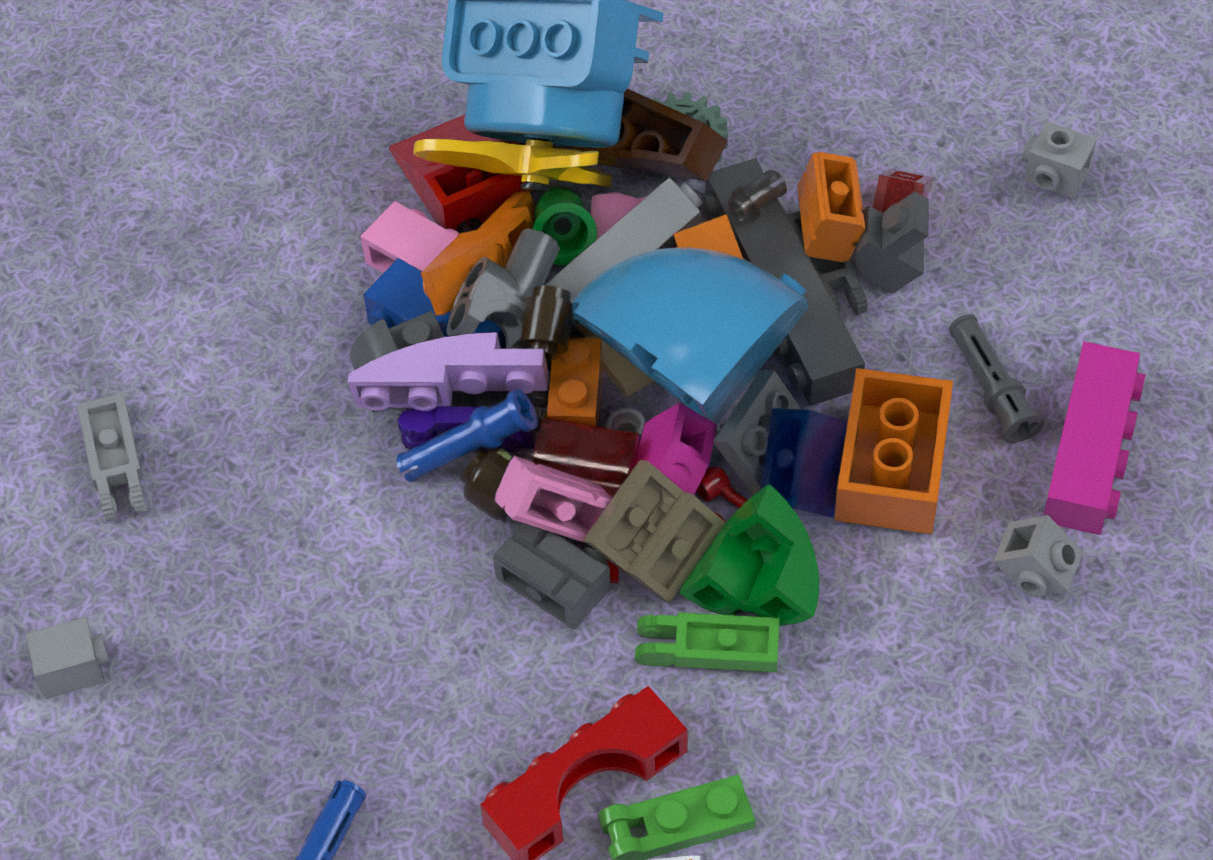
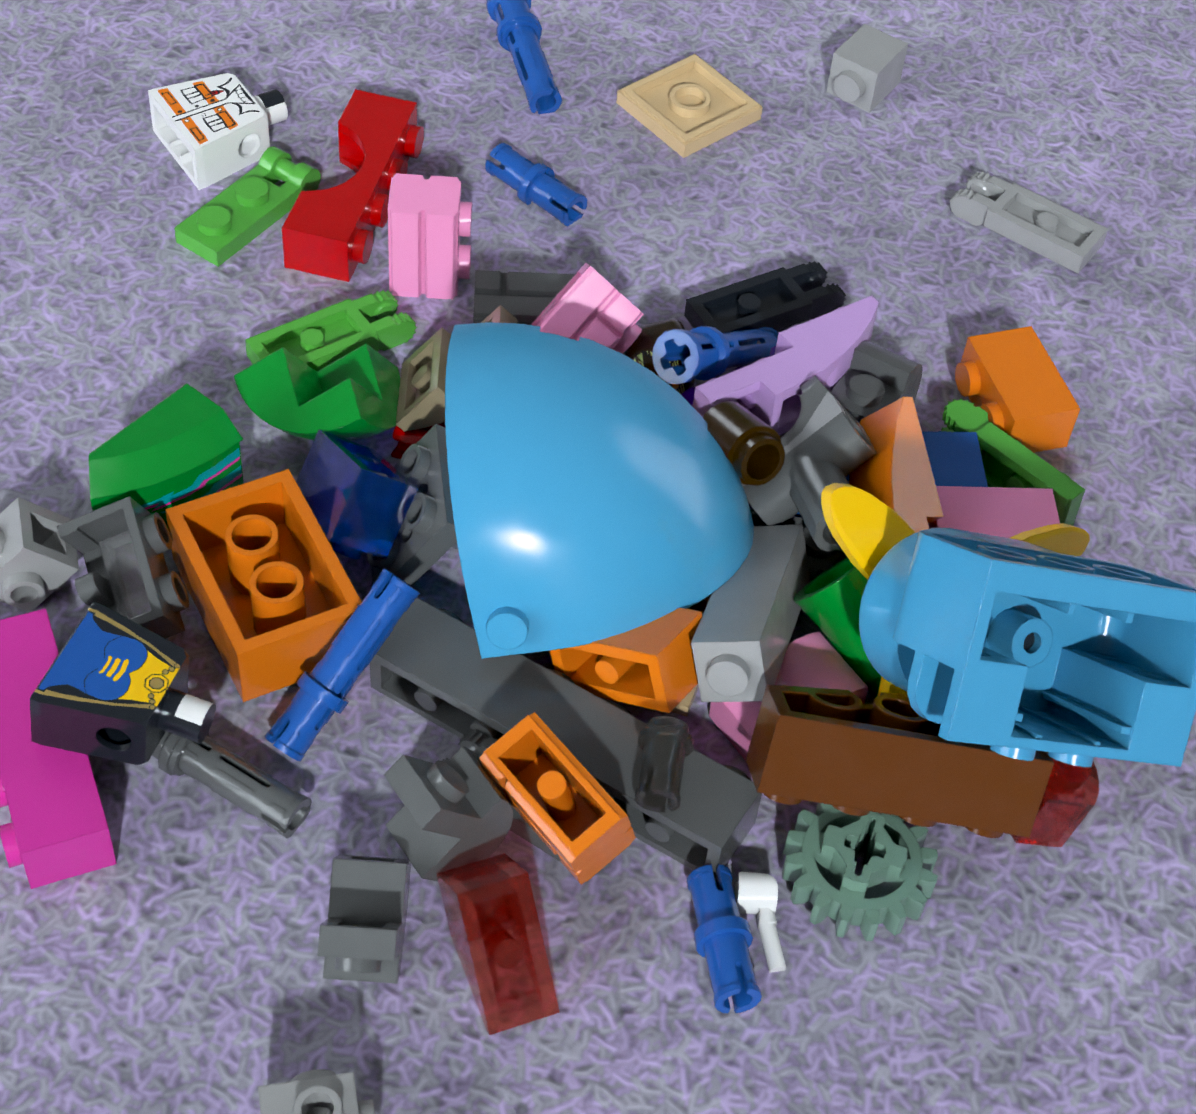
camera: 135 degrees right, 5 degrees down
(233, 725) = (689, 105): none -> tan tile
(289, 329) = (1018, 387): none -> orange brick
(349, 292) = (1009, 462): none -> bright green hinge
(377, 494) = (767, 300): none -> black hinge
(436, 705) = (536, 184): none -> blue pin
(586, 653) = (425, 236): none -> bright pink brick
(746, 151) = (758, 896): none -> white hand
(782, 143) = (723, 939): none -> blue pin
(885, 358) = (335, 674): none -> blue pin
(914, 553) = (168, 455): none -> green slope
(971, 237) = (365, 919): none -> dark grey brick
(984, 493) = (128, 566): none -> dark grey window
(1040, 394) = (116, 692): none -> torso

